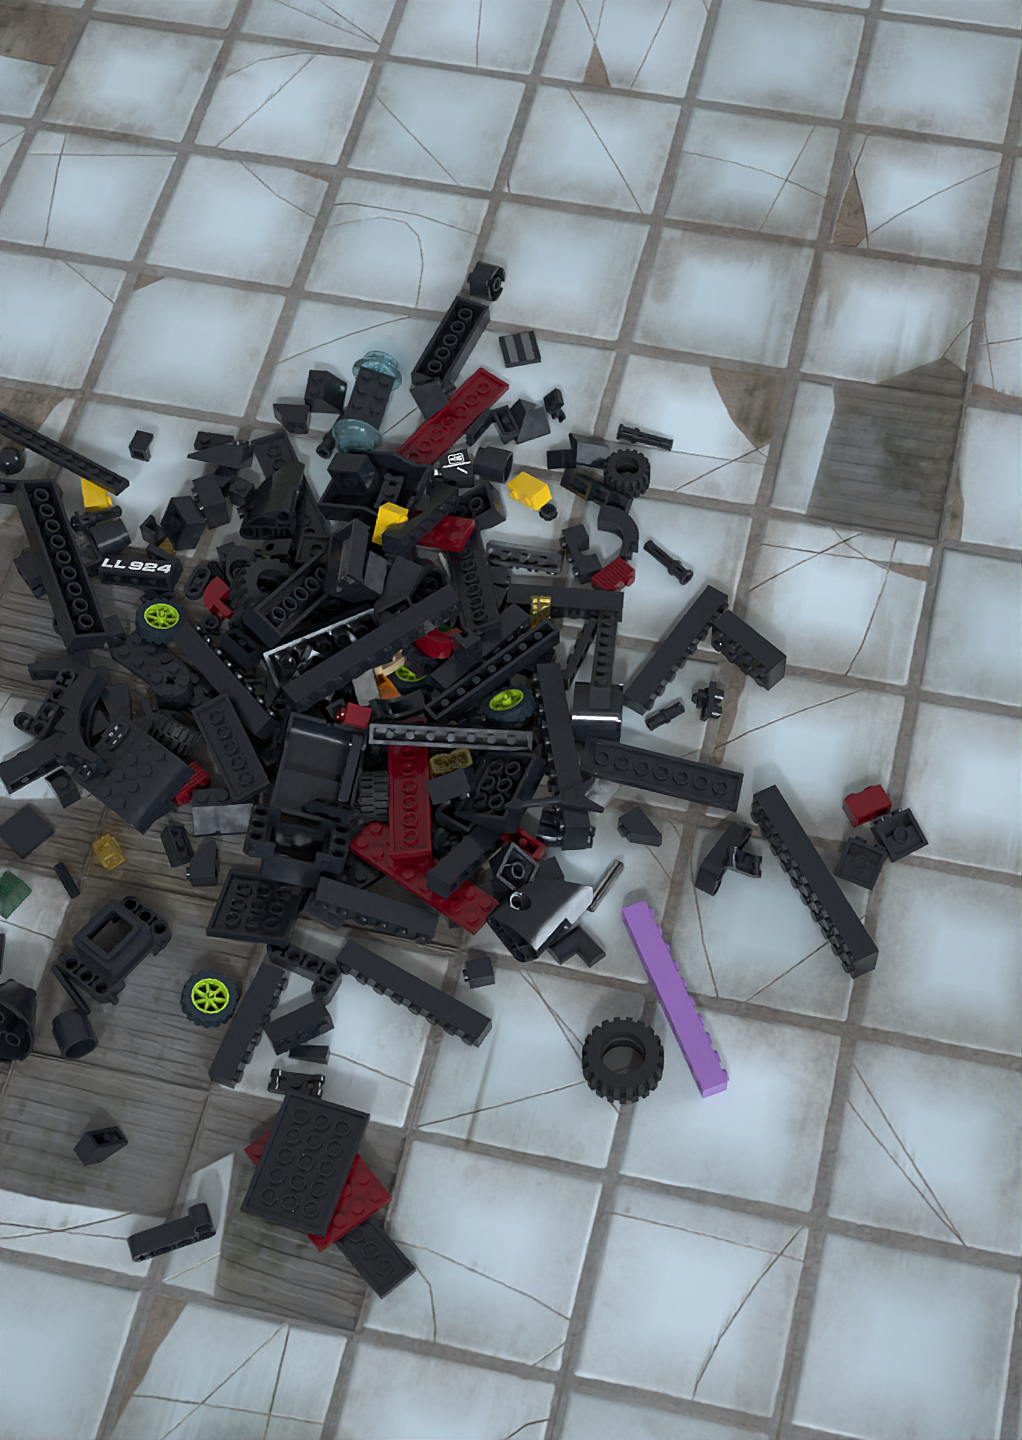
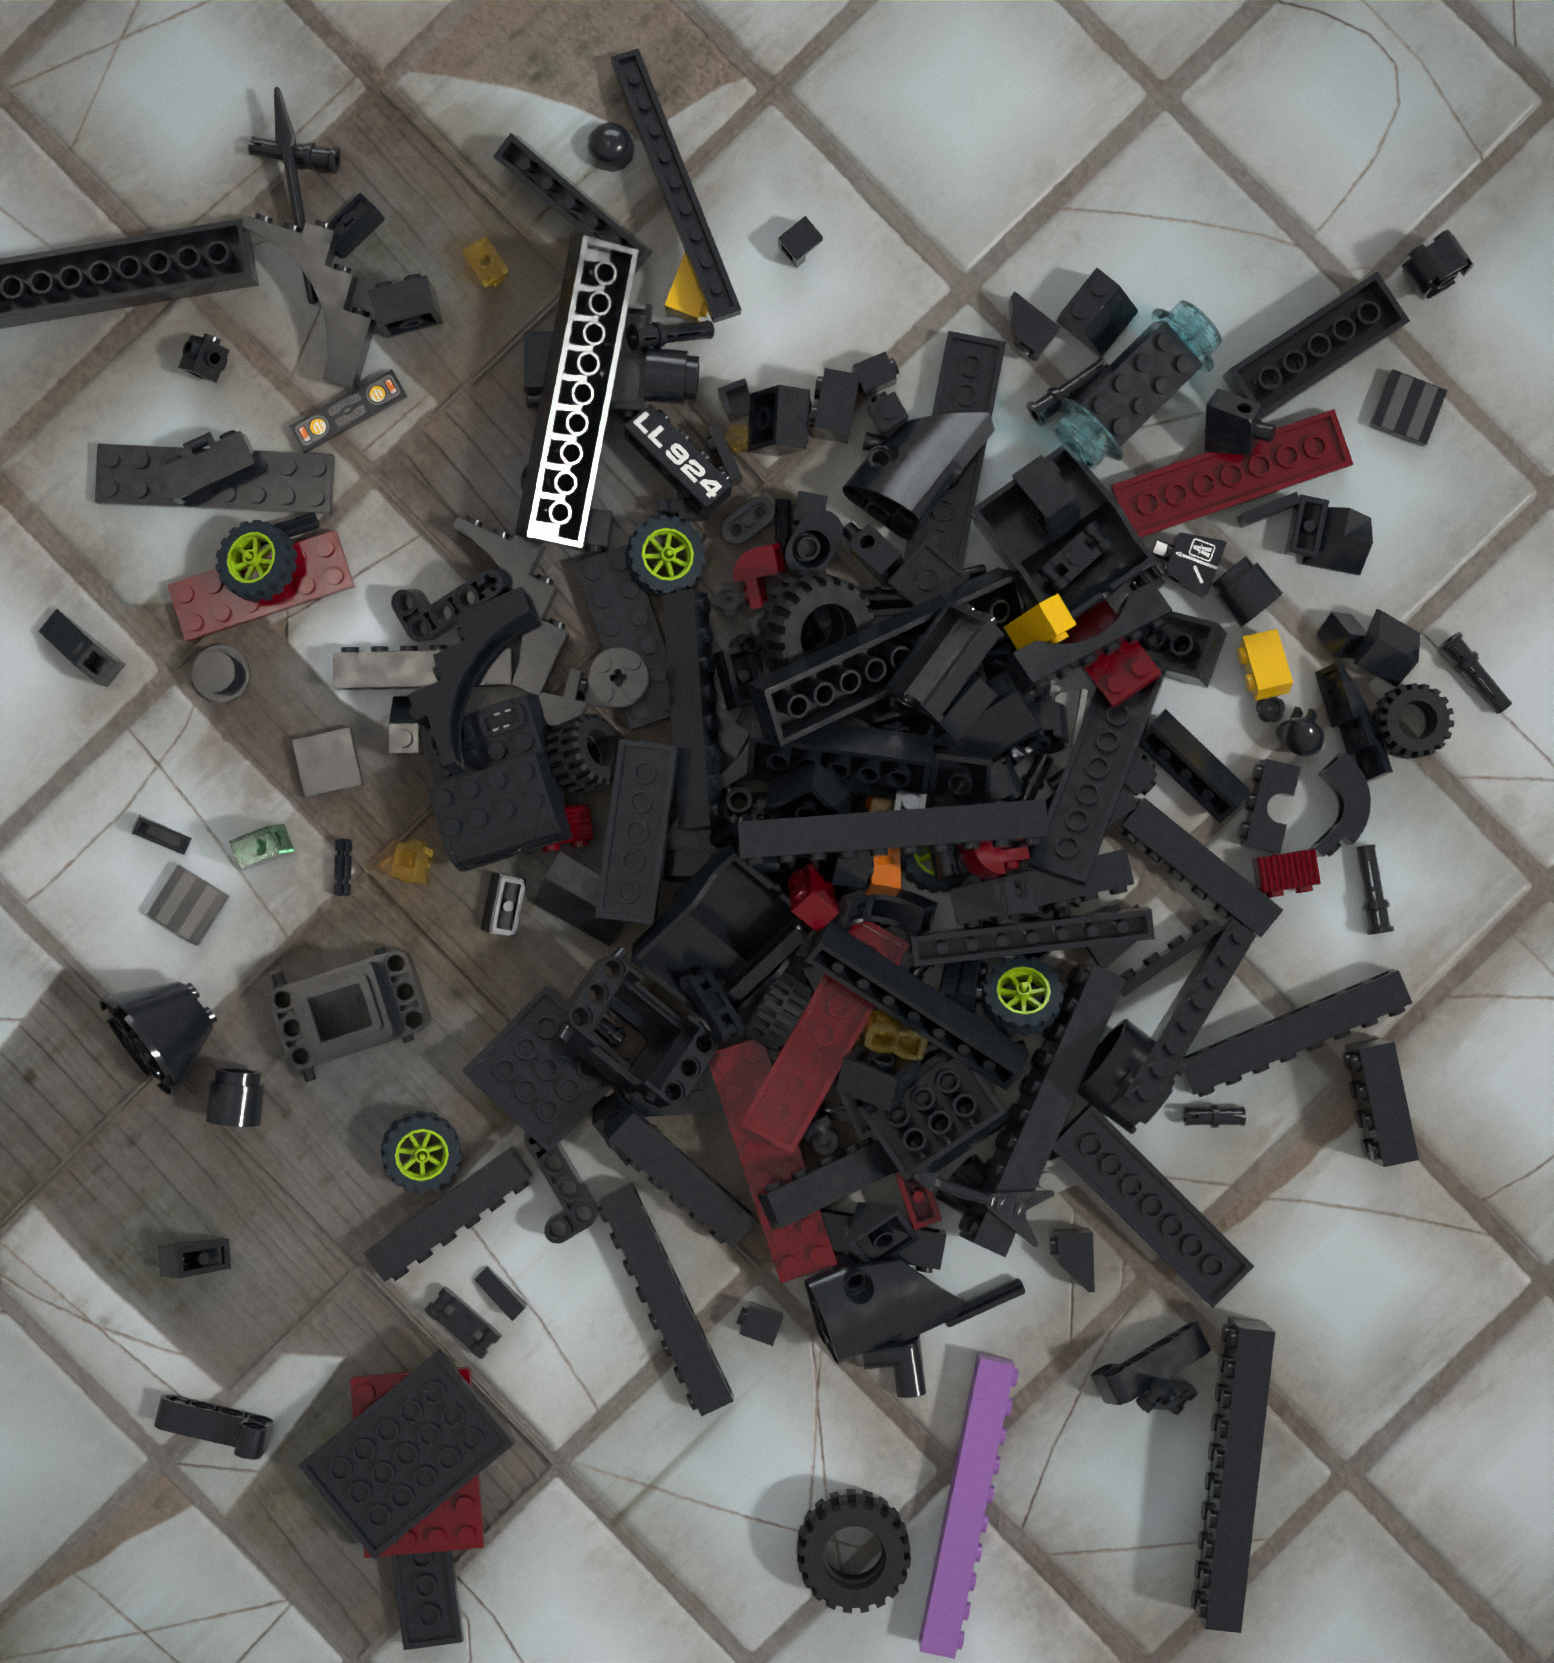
camera: 25 degrees right, 30 degrees up
(70, 990) = (267, 1025): black bar -> none
(204, 866) = (517, 962): black slope -> none
(207, 440) = (901, 295): black plate -> none
(234, 454) = (897, 338): black slope -> none
(298, 1027) = (504, 1258): black brick -> none
(540, 609) = (1155, 870): clear yellow tile -> none
(553, 404) = (1393, 535): black plate -> none
(572, 511) = (1301, 734): none -> black piece
(705, 701) = (1281, 1132): black hips -> none
(861, 863) = (1311, 1479): black plate -> none
(866, 805) = (1373, 1406): dark red brick -> none
(899, 834) = (1383, 1471): black plate -> none

